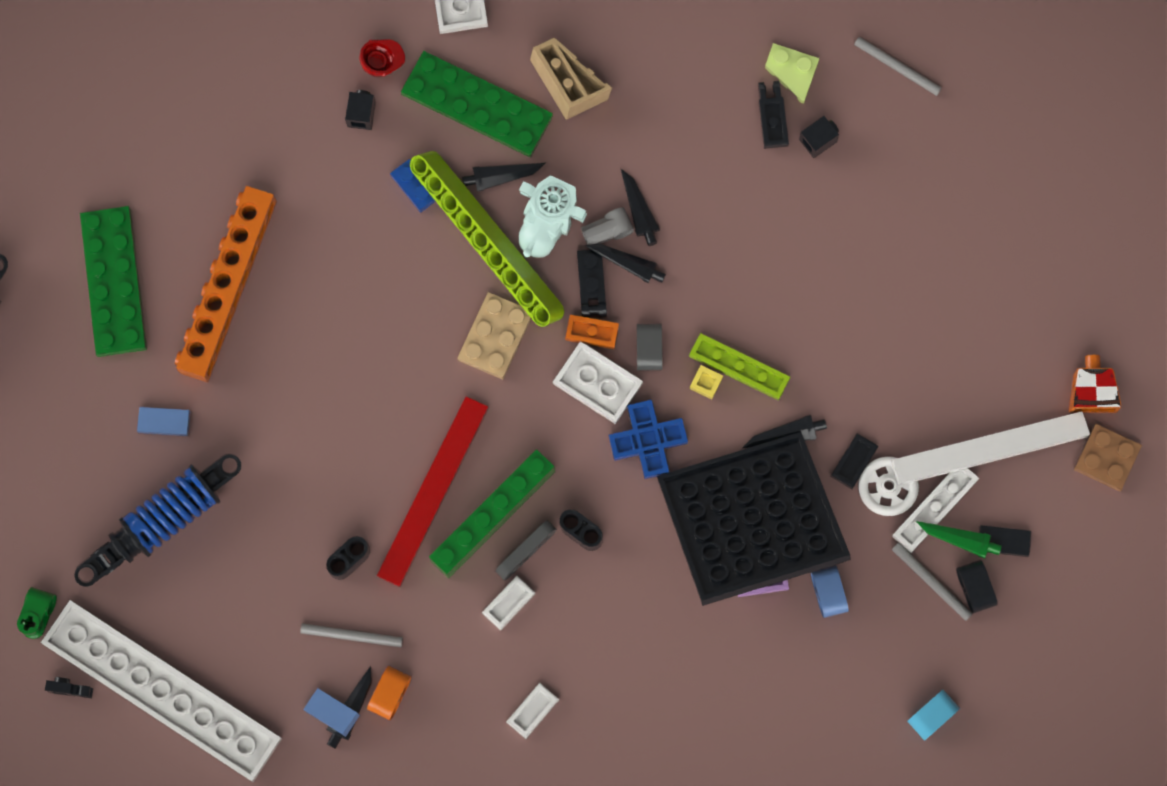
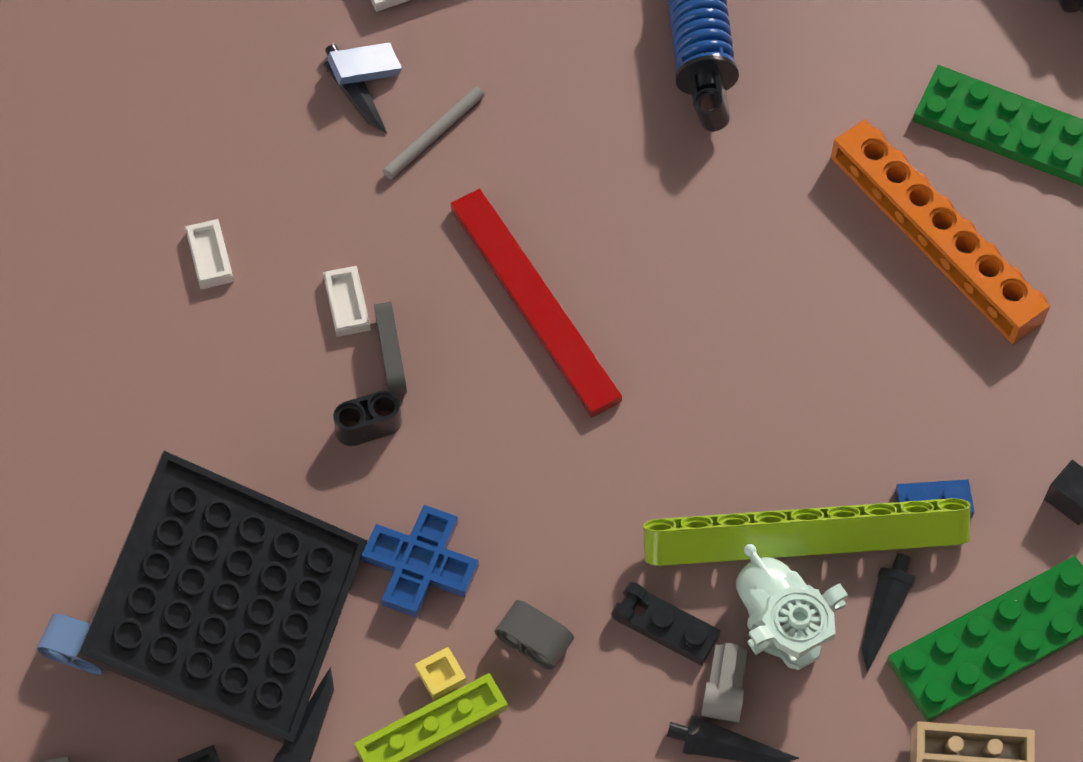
camera: 120 degrees right, 15 degrees down
(163, 421) = (812, 89): medium blue tile -> none
(351, 561) = (520, 170): black beam -> none
(389, 693) = (341, 127): orange beam -> none
(492, 513) = (458, 338): green brick -> none
(495, 336) = (675, 472): tan plate -> none
(592, 331) = (601, 582): orange plate -> none
(597, 382) = (532, 548): white plate -> none
(638, 266) = (652, 688): black bar -> none

